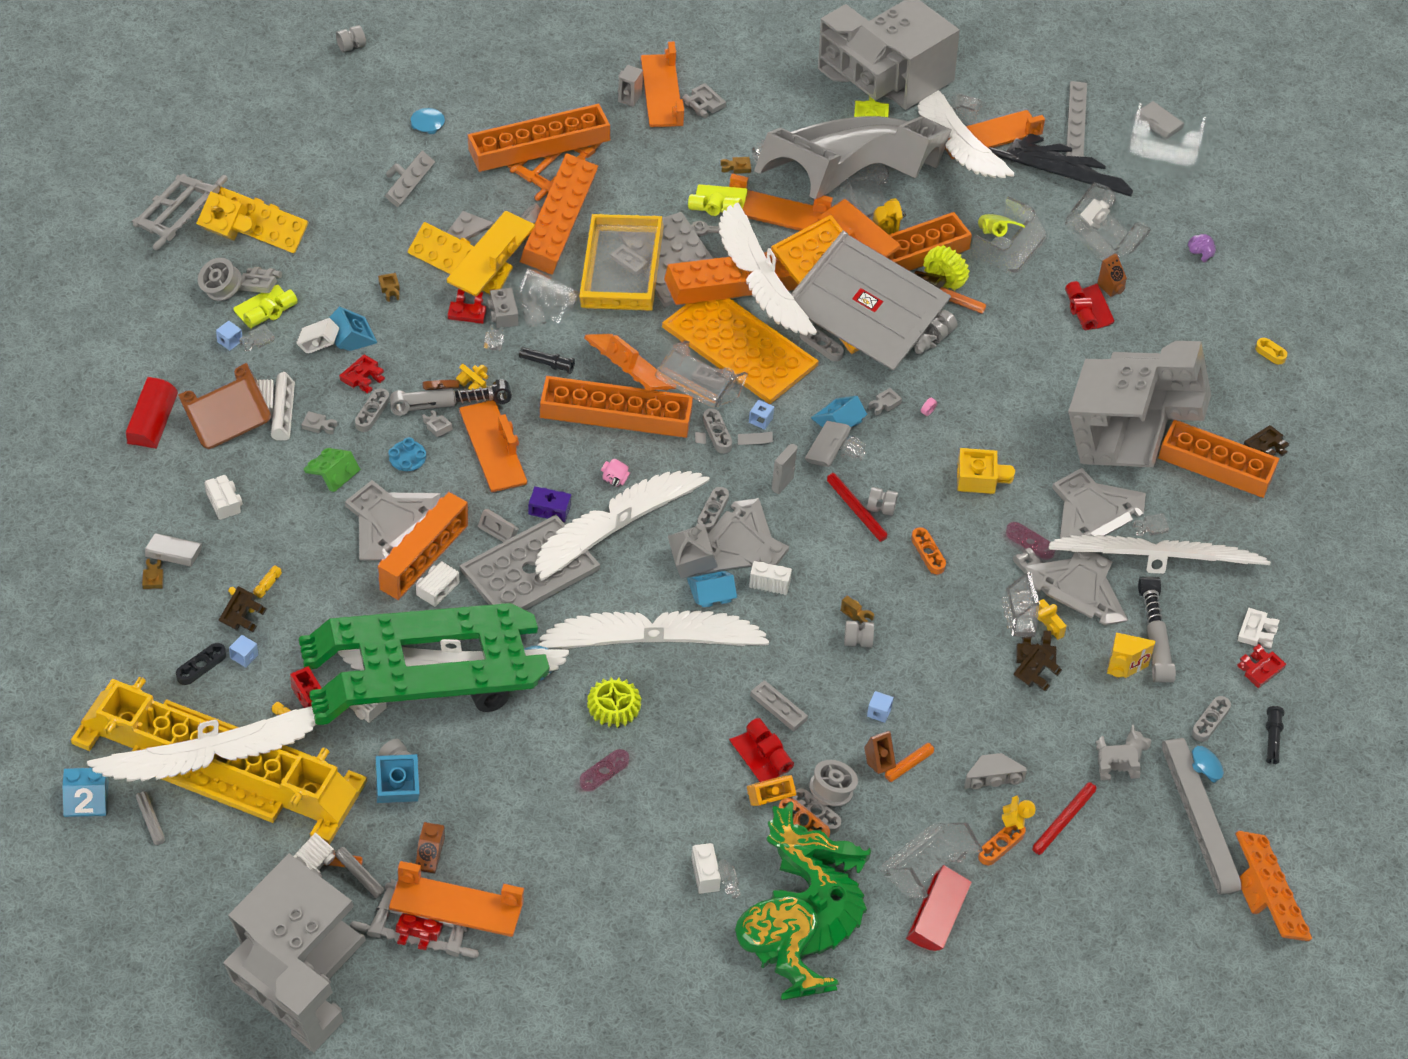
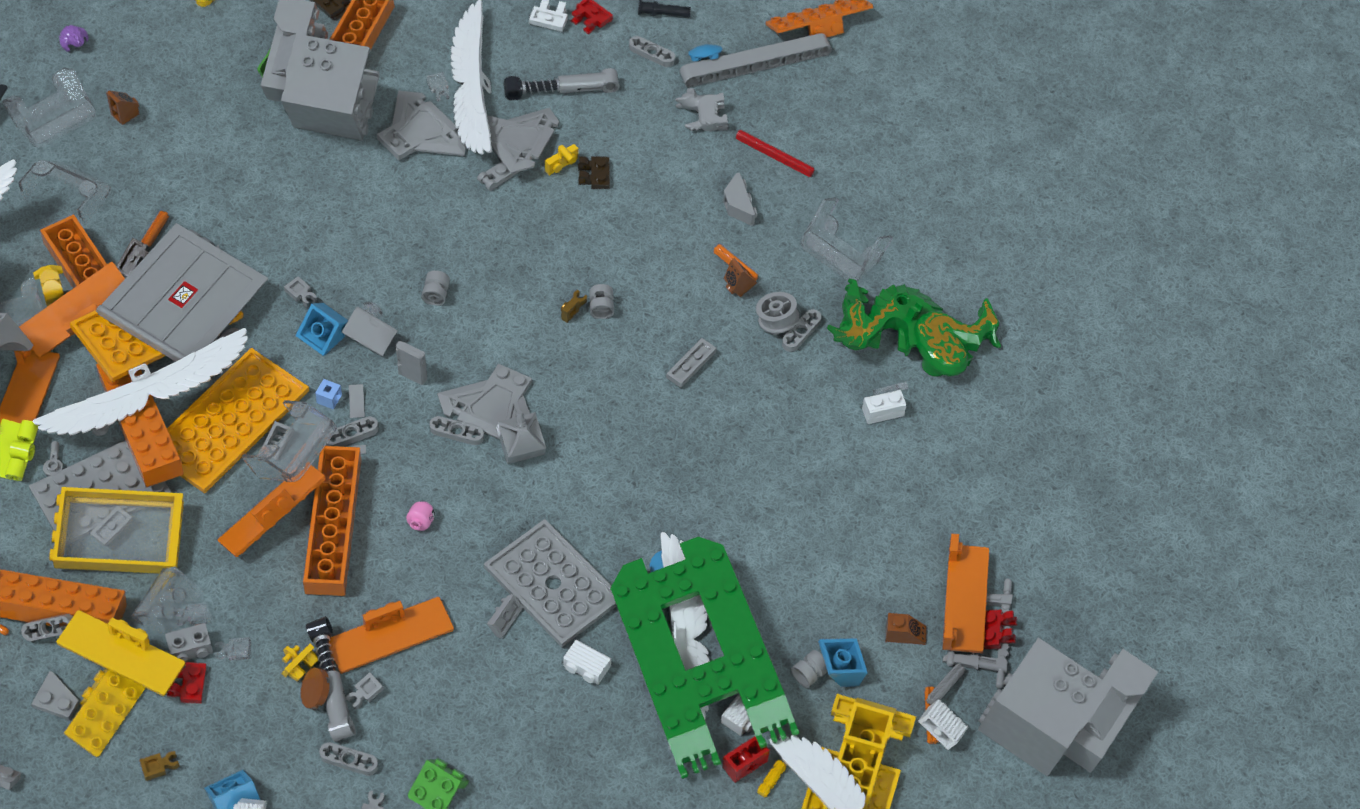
camera: 95 degrees left, 5 degrees up
(359, 371) = (295, 779): red plate -> none
(386, 517) = (502, 720): light grey plate -> none
(407, 455) = (412, 714): dark azure dish -> none
(423, 545) = (546, 675): orange brick -> none
(548, 503) = (469, 581): dark purple brick -> none
(555, 361) = (265, 586): black pin -> none
(597, 525) = (464, 502): white piece -> none
(603, 707) = (718, 487): neon yellow gear -> none
(607, 762) = (786, 490): clear pink beam -> none
(672, 627) = (613, 489): white piece -> none
(713, 588) = (560, 422): dark azure slope -> none
(762, 751) = (744, 373): red panel -> none
(770, 577) = (542, 374): white brick -> none
(771, 790) = (792, 360): light orange brick -> none
(813, 820) = (808, 337): orange beam -> none
(857, 507) = (439, 312): red axle -> none
(880, 706) = (681, 284): light blue piece -> none
(928, 543) = (488, 248): orange beam -> none
(929, 406) = (305, 255): bright pink tile -> none
(939, 909) = (906, 241): brick -> none
(947, 263) = (117, 237): neon yellow gear -> none
(983, 463) = (391, 207): yellow brick -> none
(995, 224) = (55, 192): neon yellow panel -> none
(999, 851) = (805, 189): orange beam -> none
(1017, 812) = (790, 179): yellow hips -> none
(1021, 607) = (560, 171): clear slope -> none
(1027, 533) = (466, 183): clear pink beam -> none
(1033, 666) = (619, 169): dark brown plate -> none
(1089, 306) = (156, 129): red panel -> none
(1096, 212) = (32, 115): white brick -> none
(1129, 655) = (602, 101): yellow slope -> none

